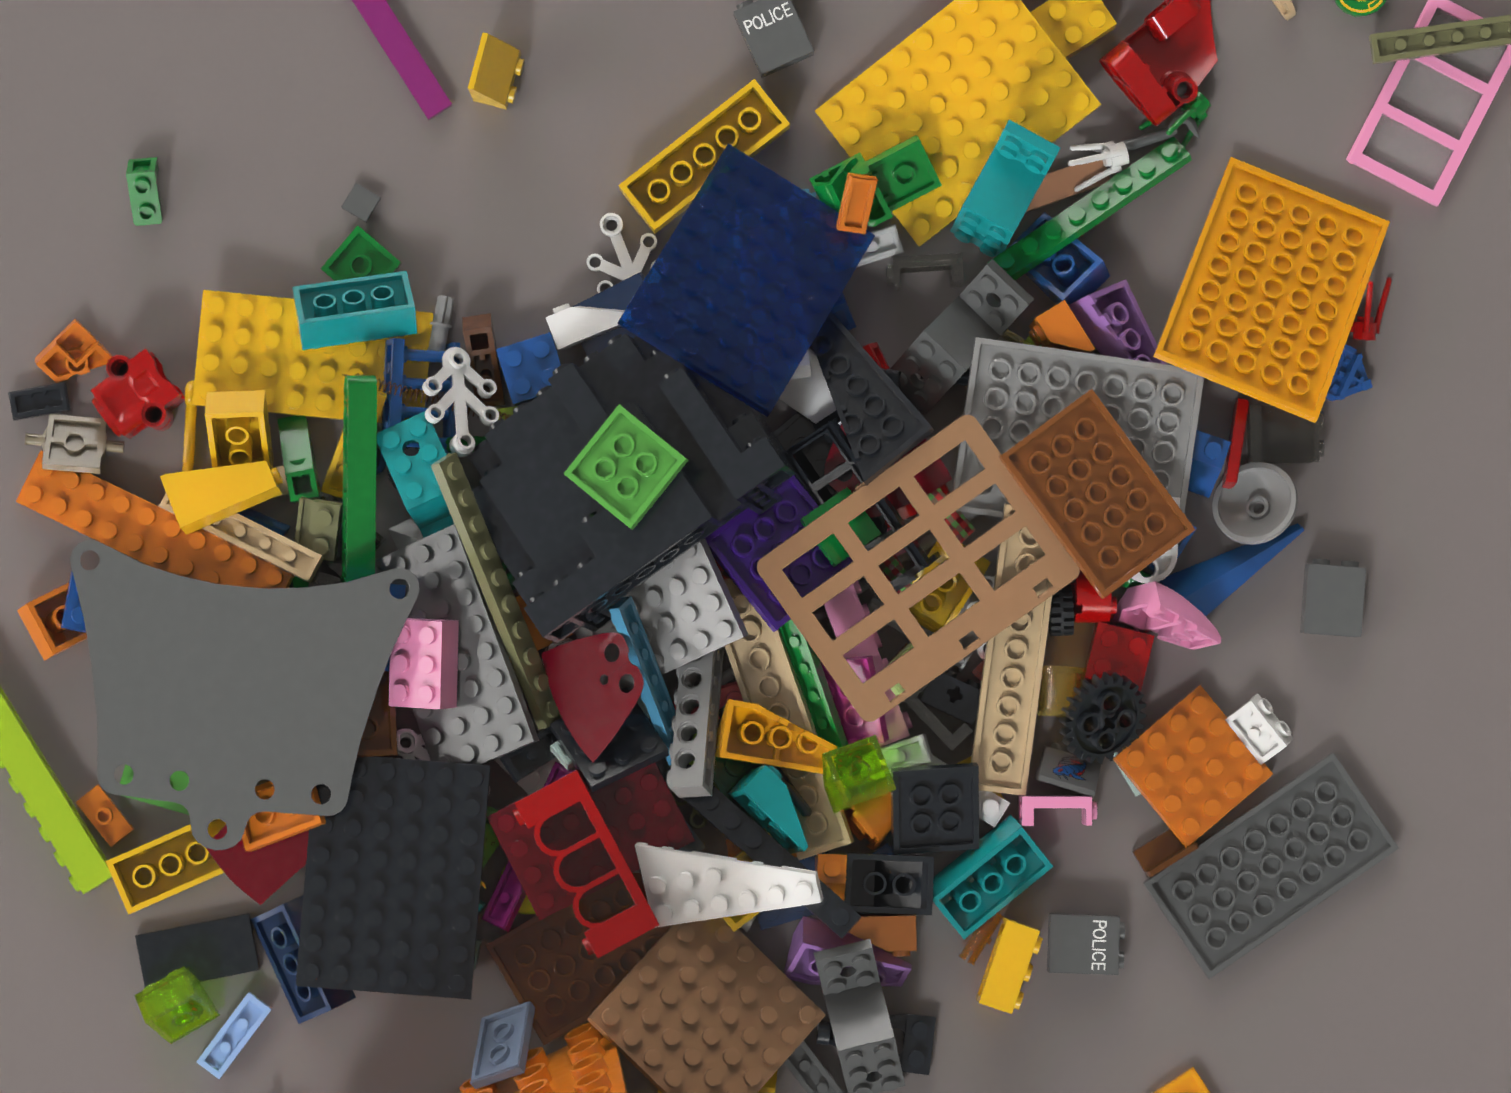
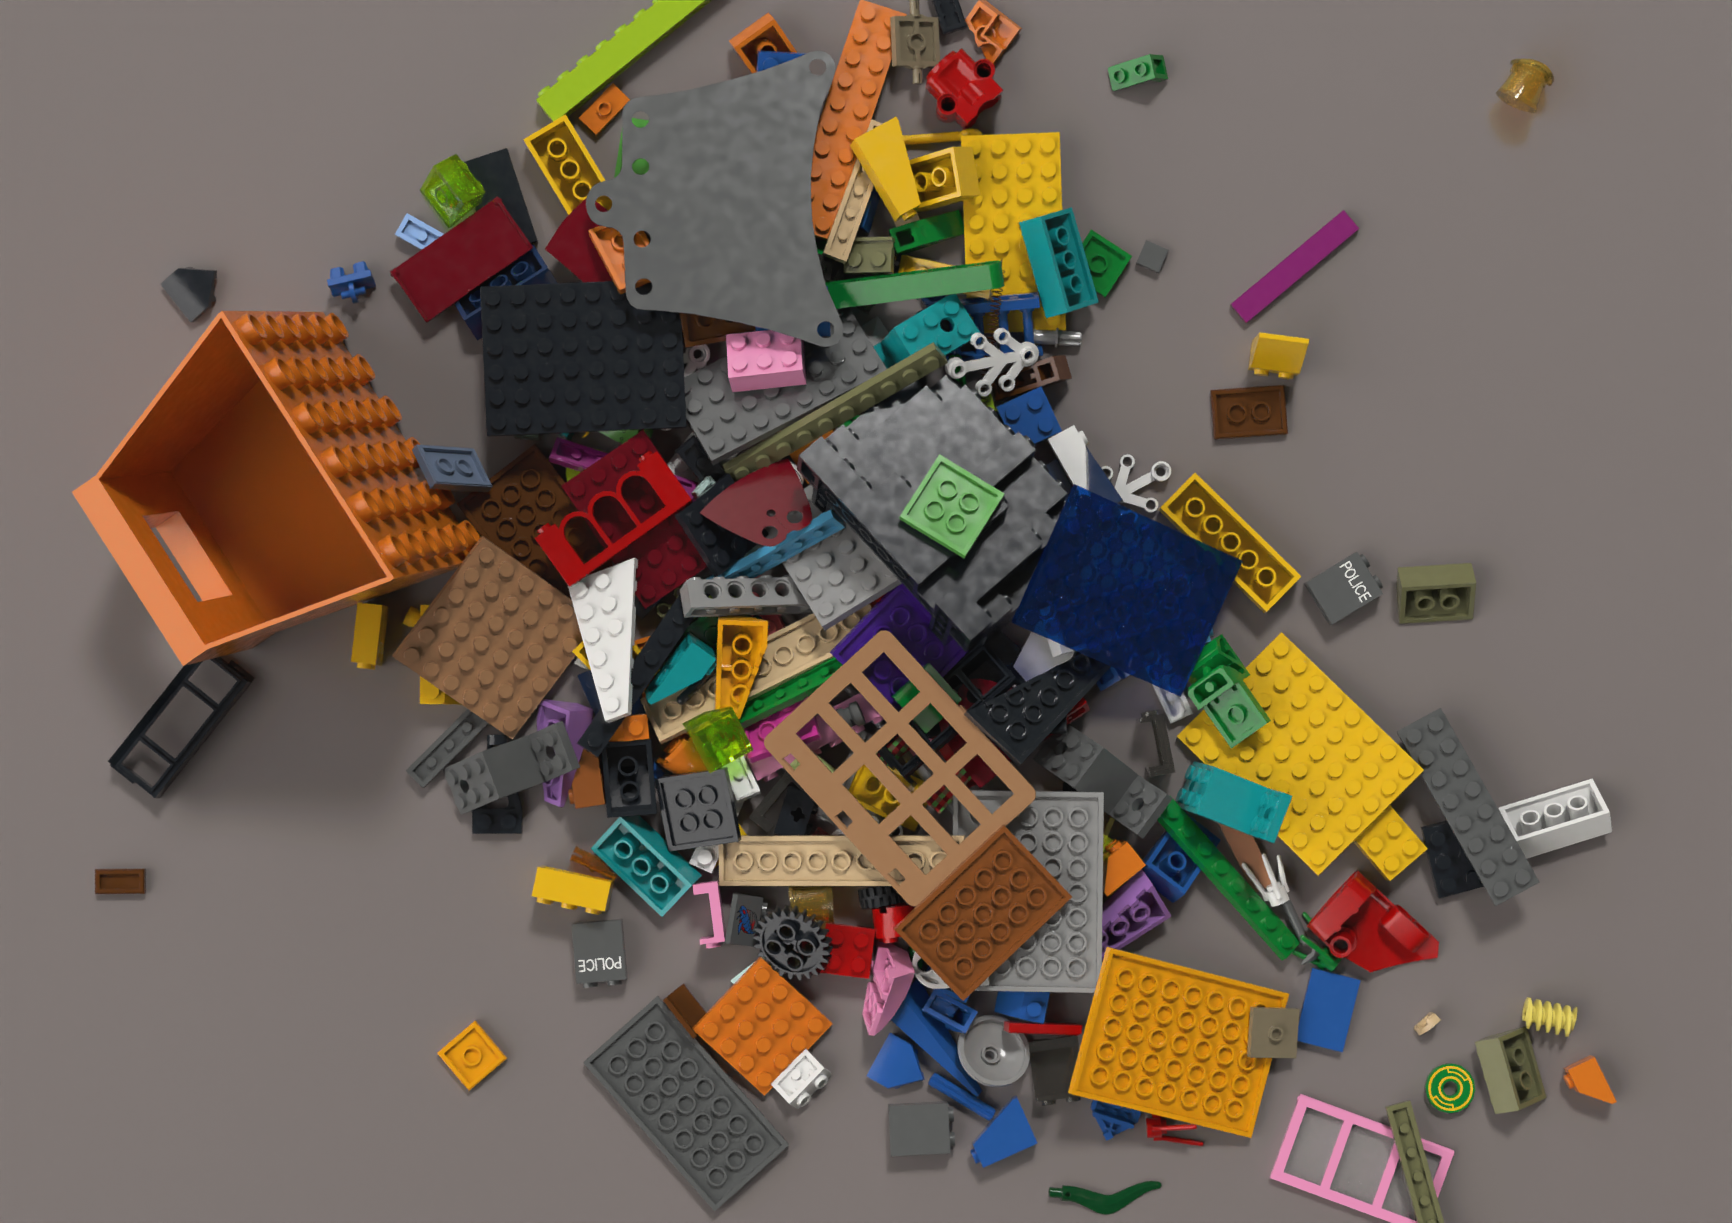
camera: 85 degrees right, 0 degrees up
(259, 1004) = (462, 259): none -> dark red door
(555, 115) = (1249, 412): none -> reddish brown tile
(848, 615) = (852, 714): none -> dark grey wheel
(856, 203) = (1205, 676): orange tile -> none
(1204, 547) = (950, 1011): none -> blue slope
(1254, 116) = (1327, 1009): none -> blue tile
(1255, 617) = (896, 1064): none -> blue slope
(1273, 180) = (1273, 1032): none -> dark tan plate
(1302, 547) = (962, 1096): none -> blue axle
(1353, 504) = (1004, 1135): none -> blue slope
(1443, 401) = (1103, 1203): none -> dark green piece

